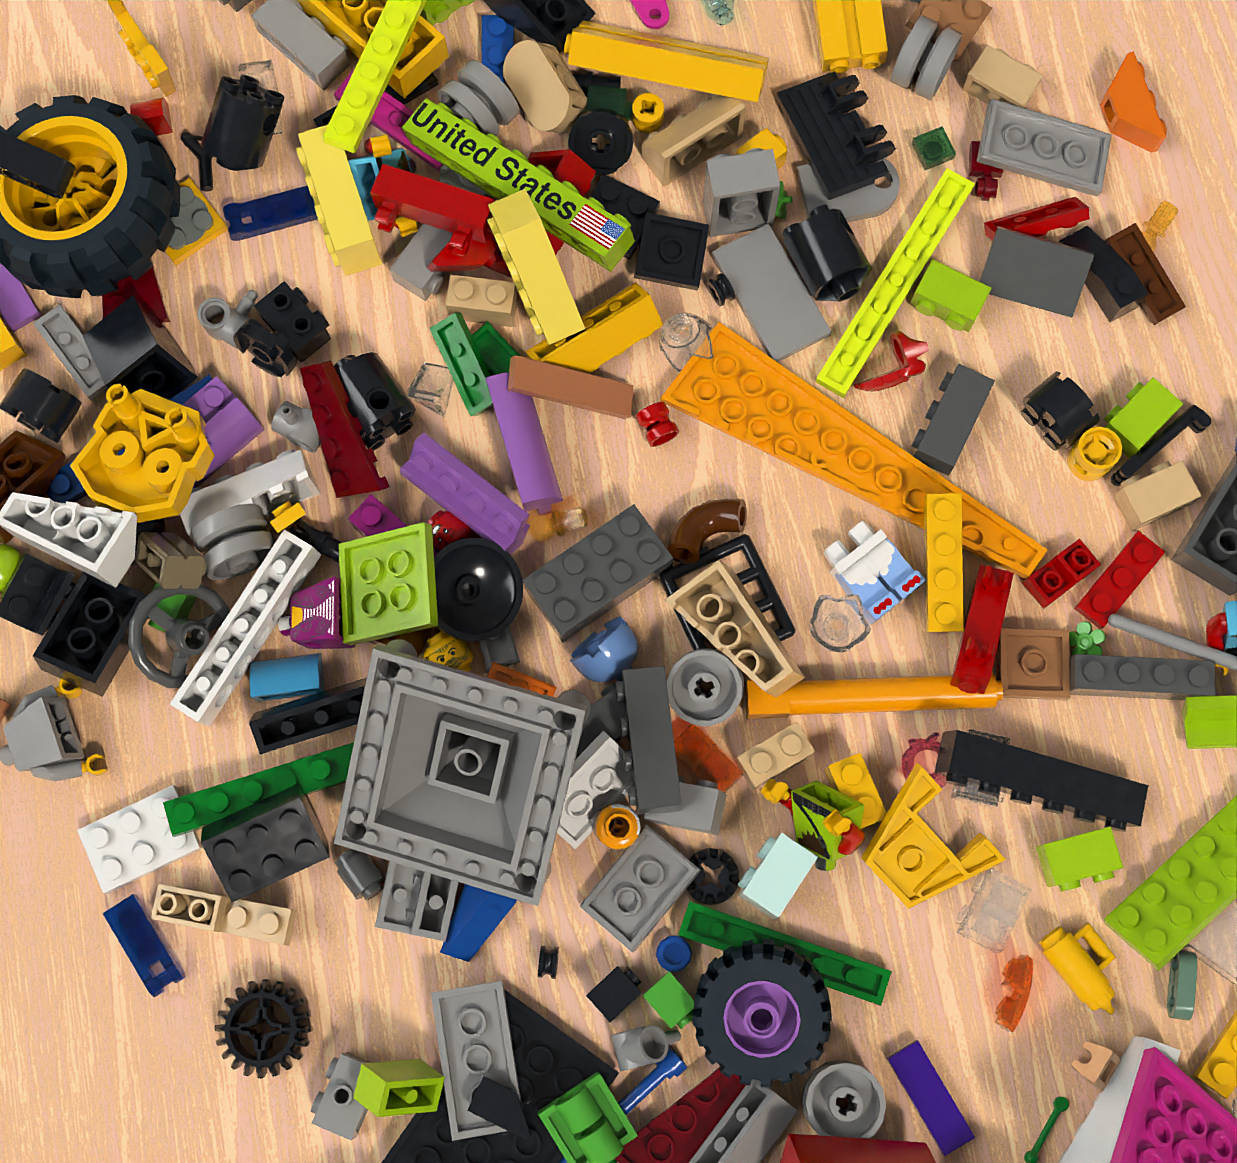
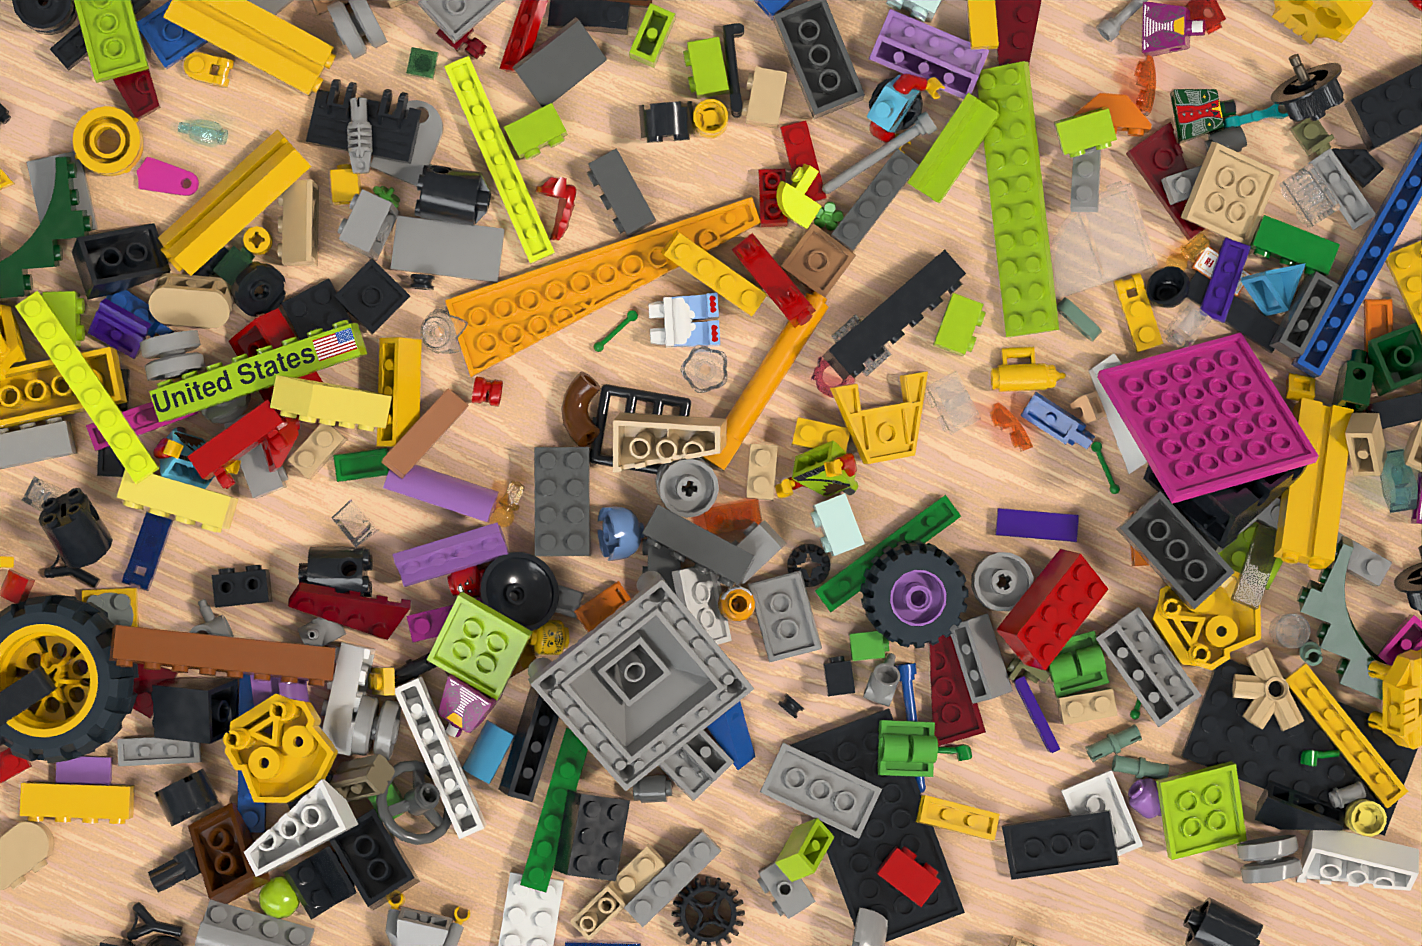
camera: 60 degrees left, 10 degrees up
(203, 331) = (222, 654): none -> dark orange brick
(269, 350) = (254, 620): black plate -> none
(276, 962) = (673, 878): none -> light grey brick
(463, 362) = (354, 491): green plate -> none
(470, 39) = (119, 328): none -> dark purple plate
(500, 1106) = (859, 795): black tile -> none
(673, 953) = (840, 623): blue tile -> none
(819, 131) = (359, 137): none -> light grey hinge
(836, 516) = (631, 316): none -> green hinge
(1057, 1039) = (1056, 421): none -> hinge
(1077, 591) = (792, 199): none -> neon yellow brick
(1132, 340) = (652, 35): none -> lime brick

